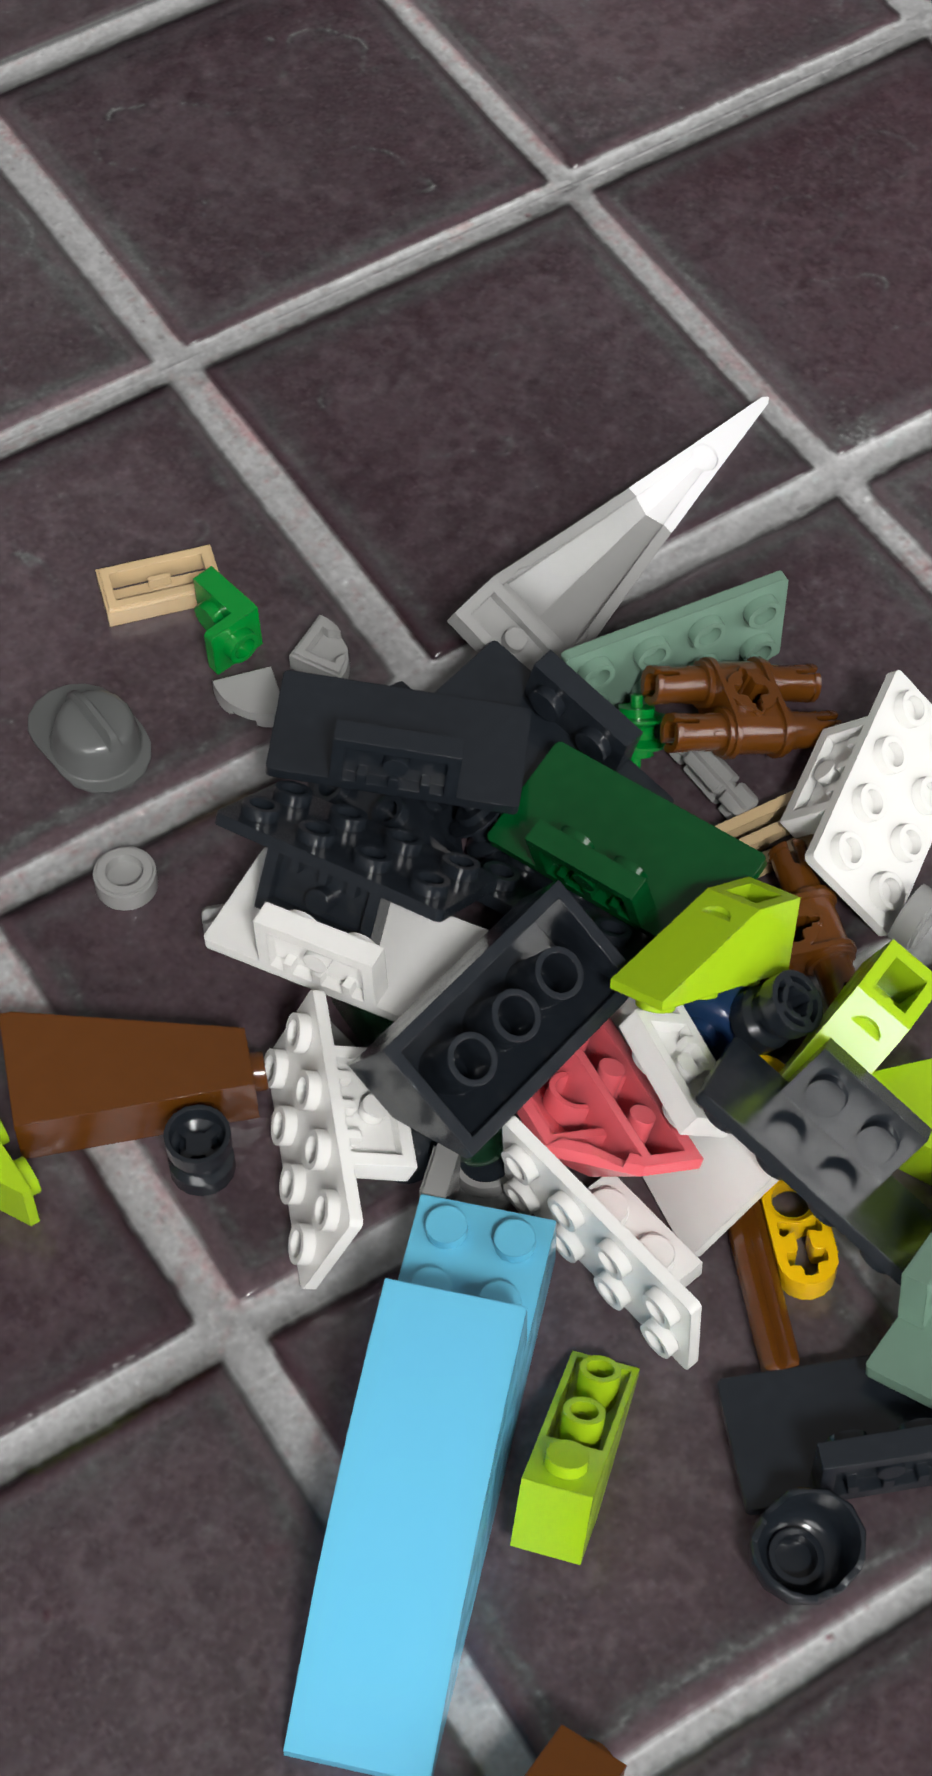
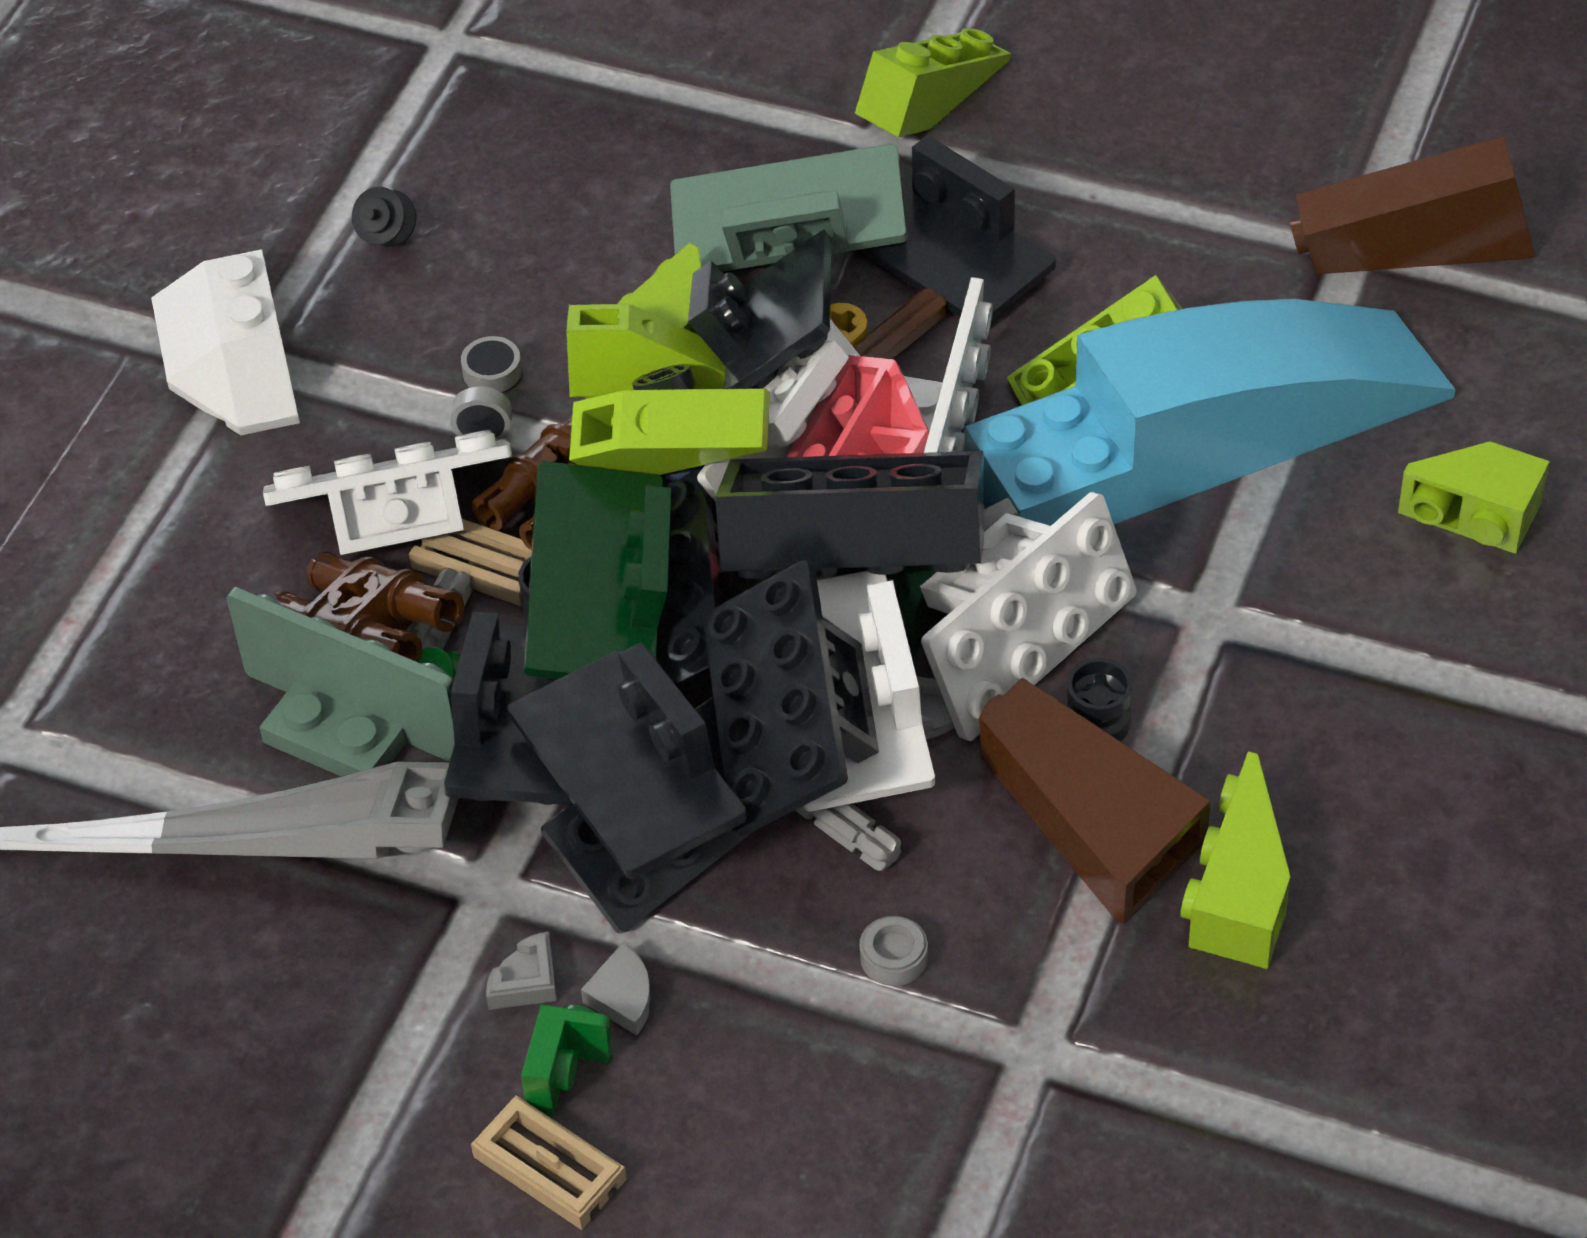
camera: 125 degrees left, 5 degrees down
(90, 737) = (767, 1094): dark grey piece -> none
(132, 1635) = (1477, 493): none -> lime slope
(807, 1546) = (1055, 211): black hair -> none

